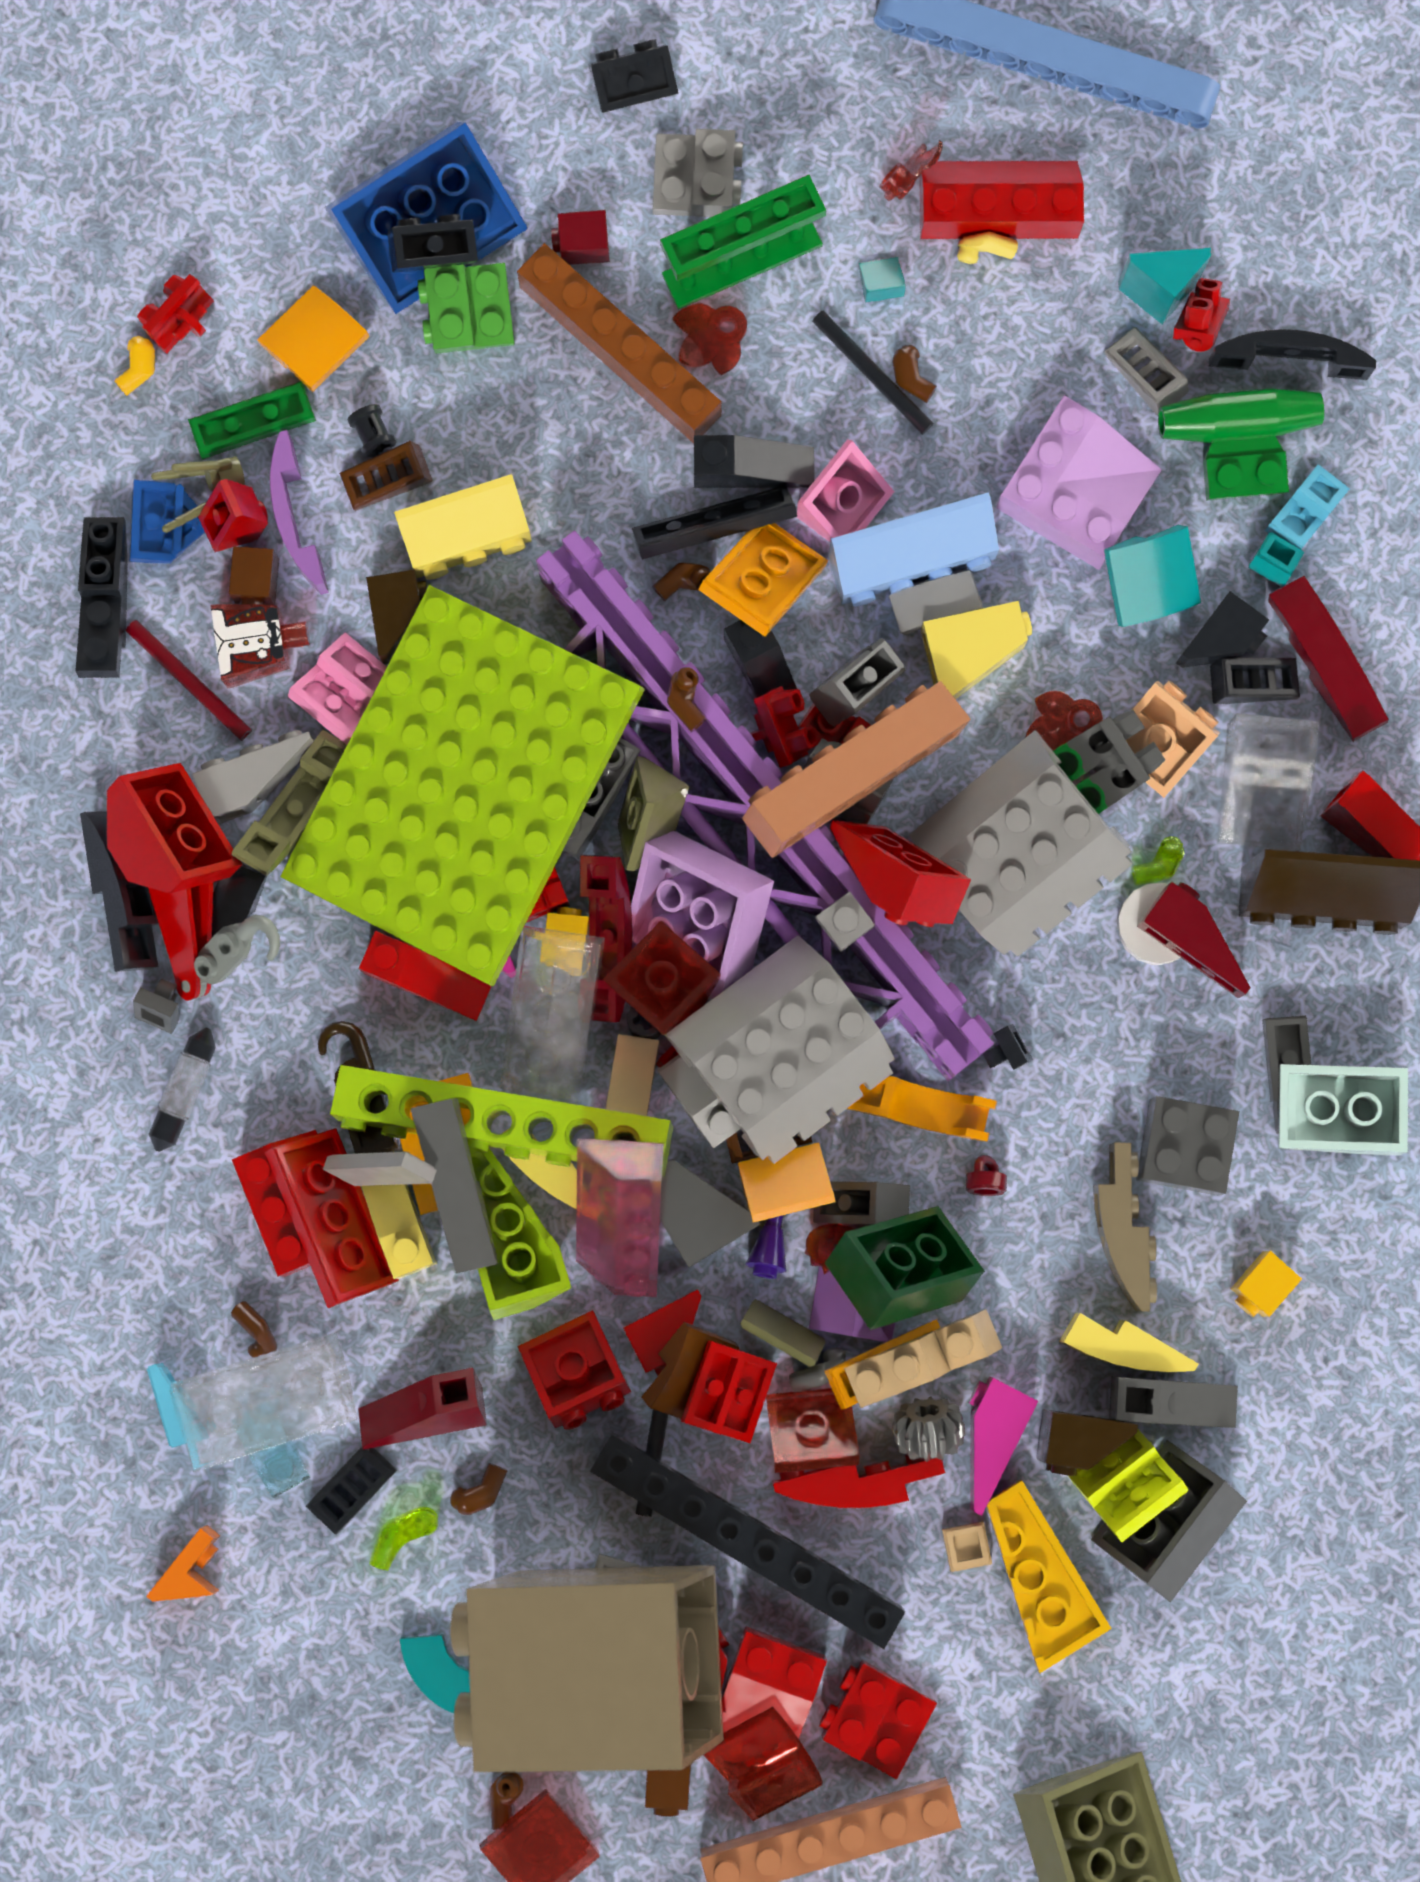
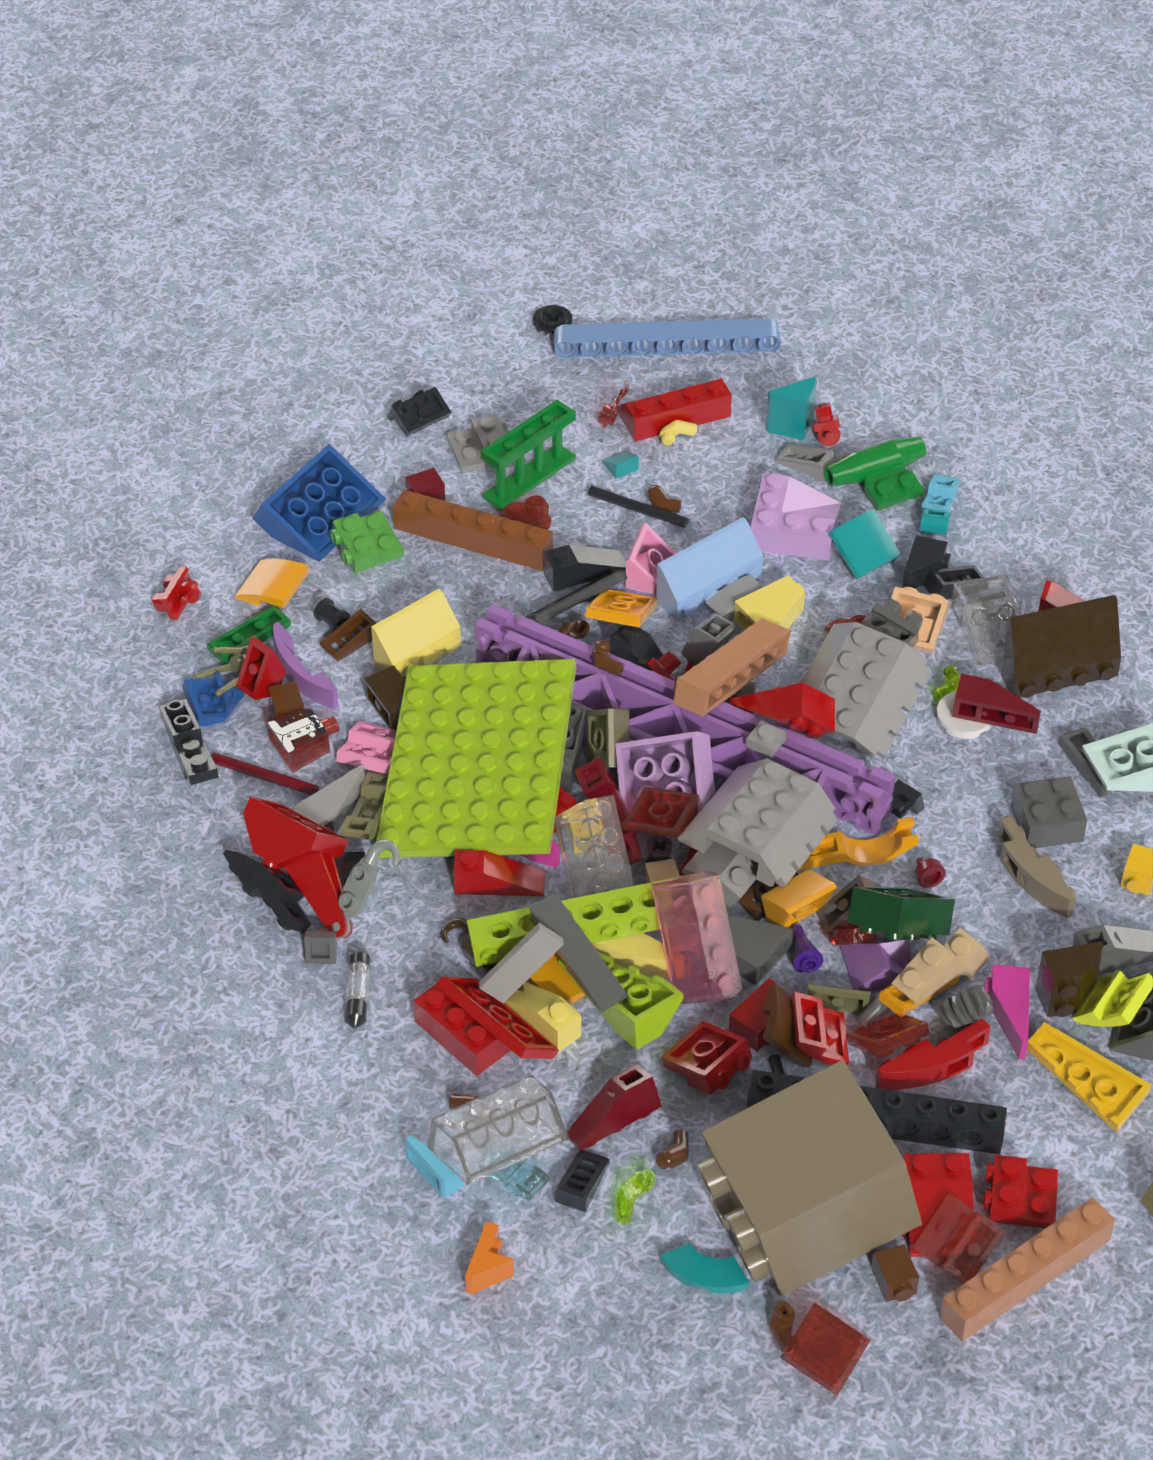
camera: 20 degrees left, 35 degrees down
(141, 364) = (163, 625): yellow arm -> none
(431, 245) = (332, 503): black brick -> none
(966, 1546) = (1028, 1077): tan tile -> none
(1124, 1346) = (1057, 932): light yellow slope -> none
(1329, 658) = (995, 555): dark red slope -> none
(1343, 358) = (890, 422): black slope -> none

